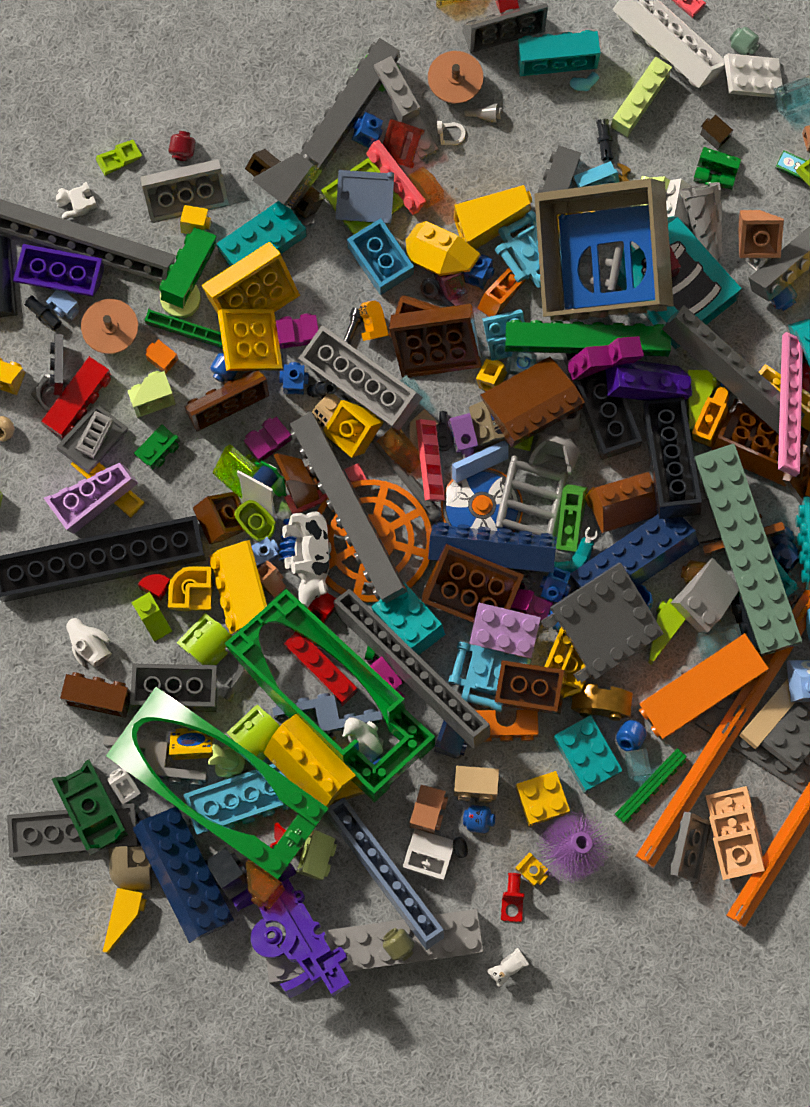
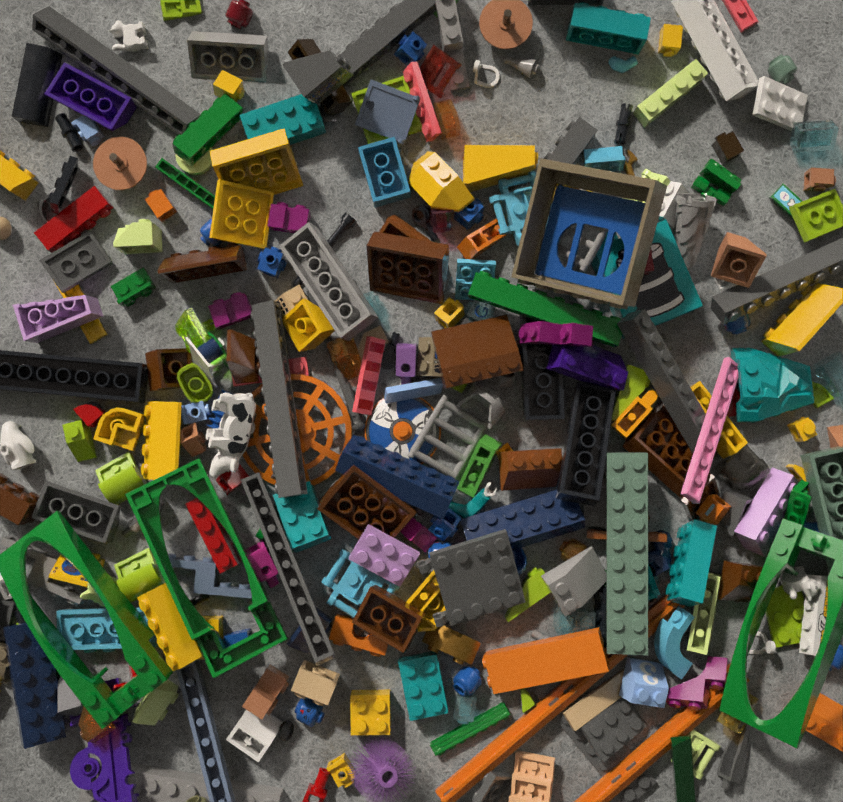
camera: 20 degrees right, 10 degrees up
(101, 419) = (71, 256): light grey slope -> none
(321, 389) = (292, 280): black pin -> none
(369, 743) = (229, 611): white animal -> none
(373, 320) = (359, 230): light orange leg -> none
(624, 45) = (670, 39): none -> yellow brick
(696, 735) = (525, 700): none -> lime slope

